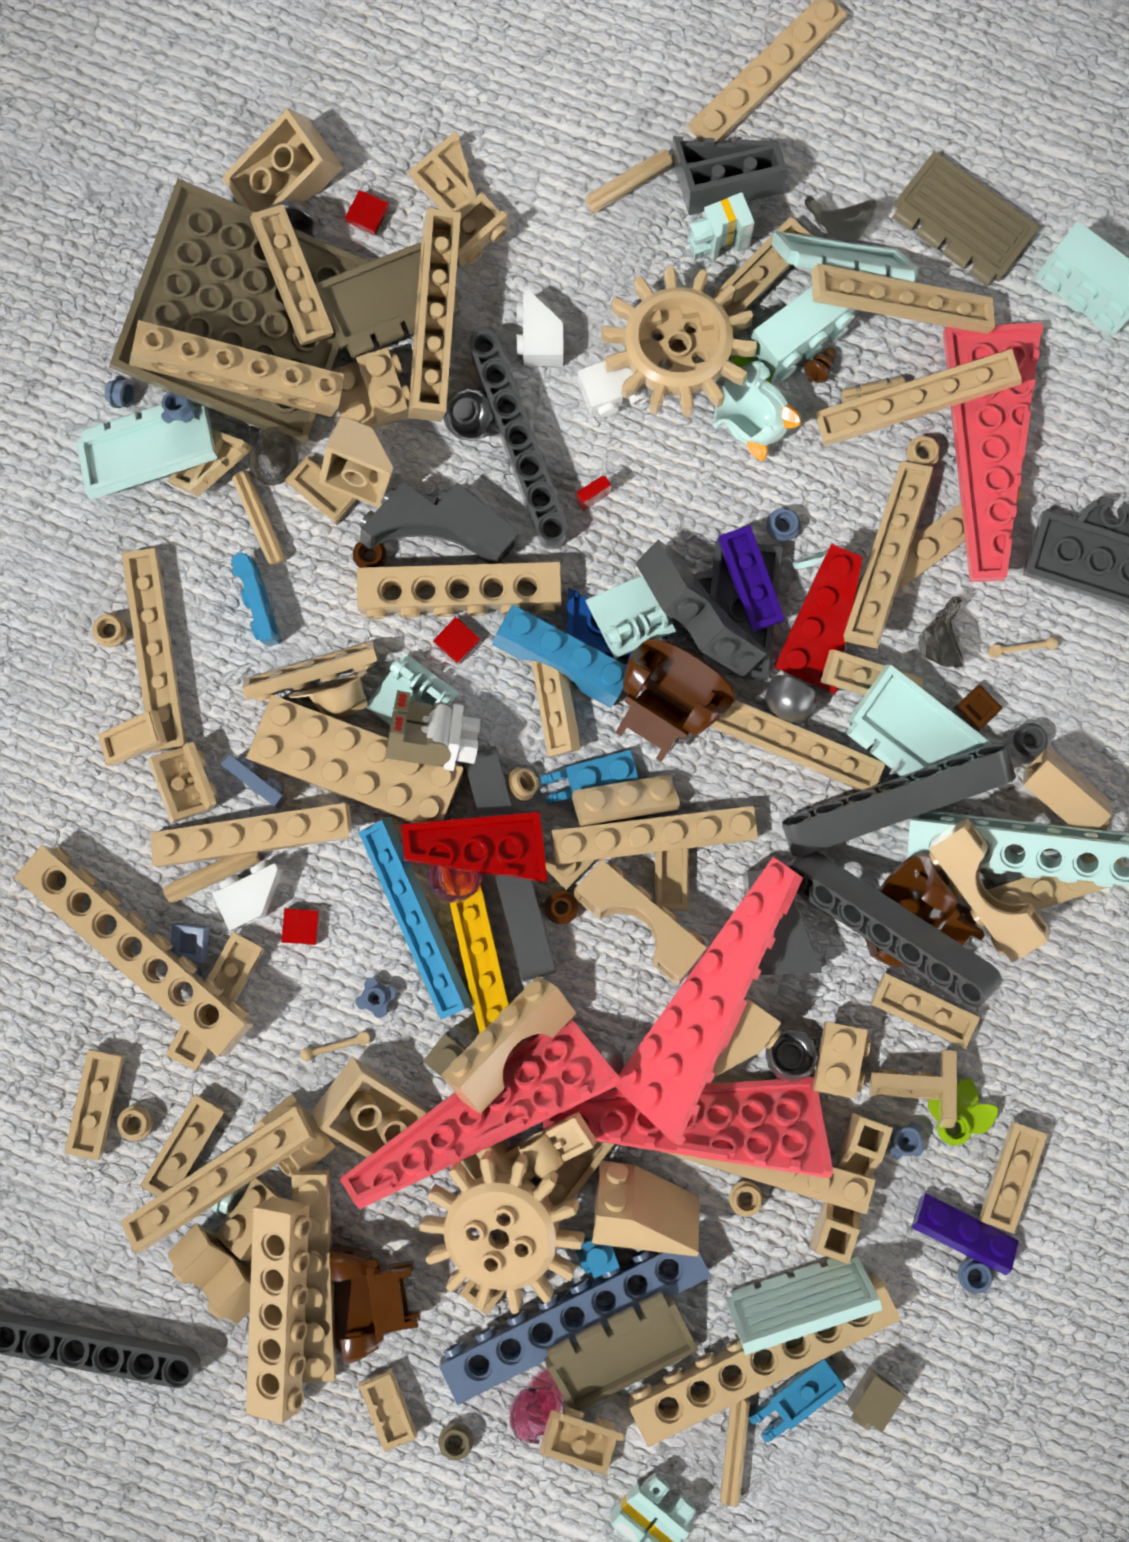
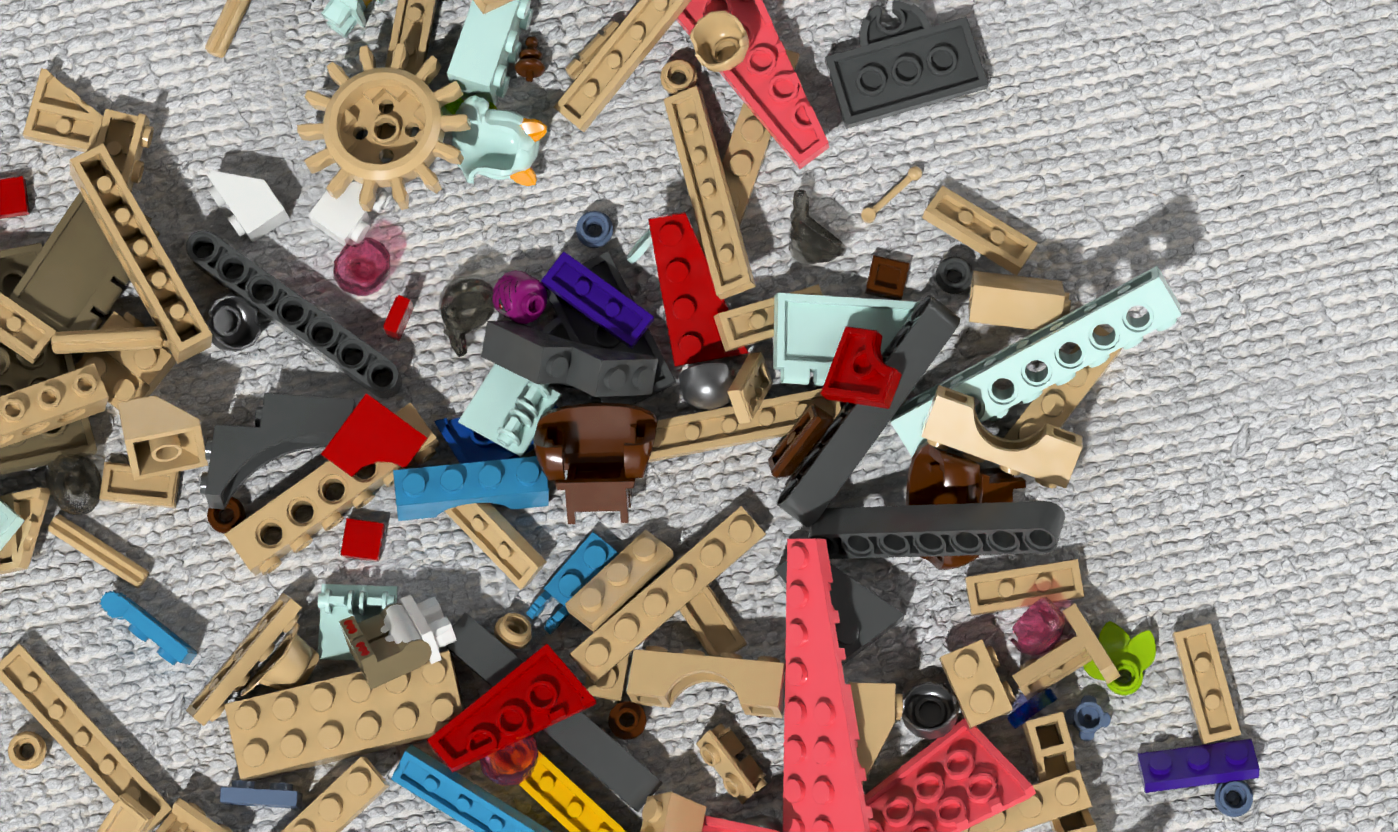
camera: 25 degrees left, 5 degrees down
(367, 364) = (107, 340): none -> tan axle
(513, 568) = (373, 436): none -> red tile
(592, 437) = (362, 267): none -> clear pink hair
(616, 1008) = (740, 778): none -> tan hinge
(647, 519) = (465, 308): none -> clear smoke hat
(694, 537) = (519, 297): none -> magenta head
(820, 722) = (750, 387): none -> tan plate
(830, 786) = (799, 441): none -> reddish brown slope
(868, 1105) = (1031, 707): none -> clear blue tile
(913, 767) = (859, 371): none -> red tile
(916, 1051) = (1039, 628): none -> clear pink hair
(976, 443) = (719, 41): none -> tan hair
(1072, 719) = (979, 230): none -> tan plate

